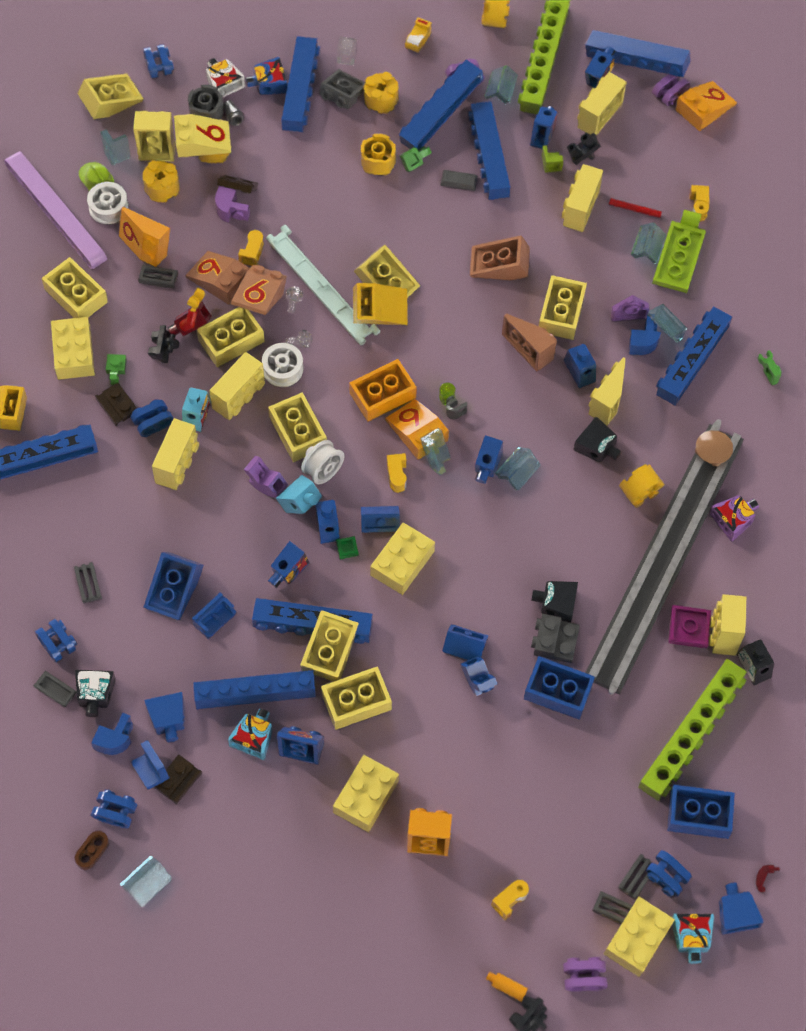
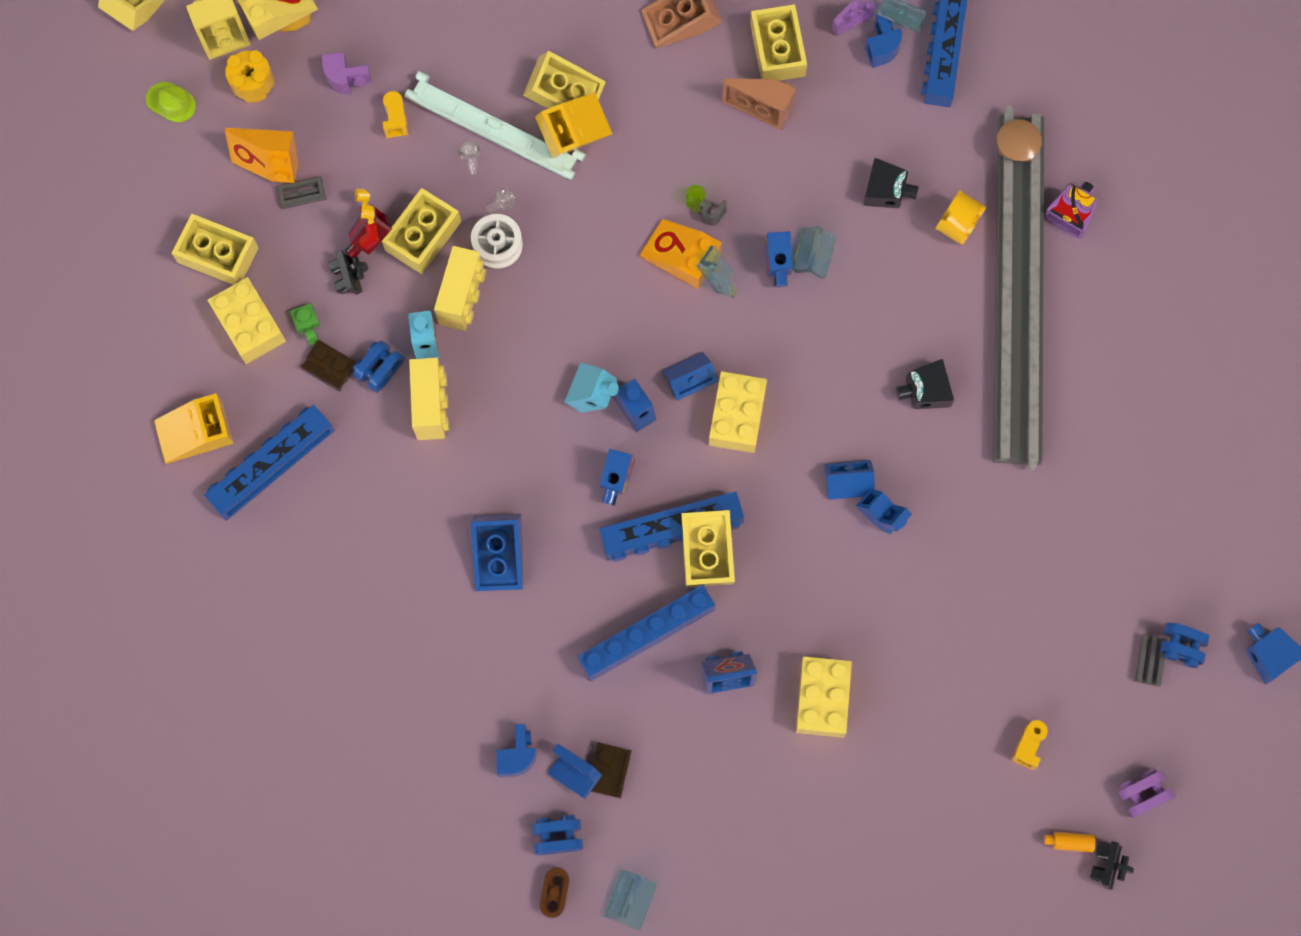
camera: 20 degrees left, 10 degrees up
(55, 210) = (143, 161): lavender beam -> none
(55, 689) = (423, 728): dark grey tile -> none
(58, 629) = (393, 658): blue brick -> none
(84, 568) = (387, 574): dark grey tile -> none
(94, 689) = (468, 711): torso -> none
(106, 202) = (200, 128): white wheel -> none
(115, 149) = (177, 60): clear light blue panel -> none
(167, 714) = (563, 704): blue torso -> none
(214, 615) = (560, 567): blue hinge -> none
(218, 275) = (372, 163): nougat slope -> none
(238, 184) = (340, 43): dark brown plate -> none
(252, 734) = (669, 684): torso -> none
(260, 289) = (430, 163): nougat slope -> none
(265, 480) = (542, 385): medium lavender brick -> none
(296, 425) = (549, 308): light yellow brick -> none
(322, 461) = (597, 338): white wheel -> none
(347, 547) = (668, 424): green tile -> none
(356, 698) = (763, 594): light yellow brick -> none
(382, 390) = (624, 224): light orange brick -> none
(395, 472) = (682, 315): yellow leg -> none
(429, 832) = (916, 713): light orange brick -> none
(555, 638) = (944, 432): dark grey plate -> none
(559, 687) = (976, 487): blue brick -> none
(579, 362) = (830, 104): blue torso -> none
(607, 397) = (877, 125): light yellow slope -> none
(607, 914) = (1123, 706): dark grey tile -> none
(639, 936) = (1184, 727): light yellow brick -> none
(689, 626) = (1081, 356): magenta plate -> none
(693, 934) = (1238, 699): torso -> none
(701, 811) = (1188, 560): blue brick -> none
(728, 624) = (1128, 339): light yellow brick -> none
(728, 673) = (1119, 550): lime brick -> none
(755, 659) = (1170, 366): black torso -> none
(762, 874) = (1278, 601): dark red piece -> none
(770, 369) = (1035, 21): bright green plate -> none

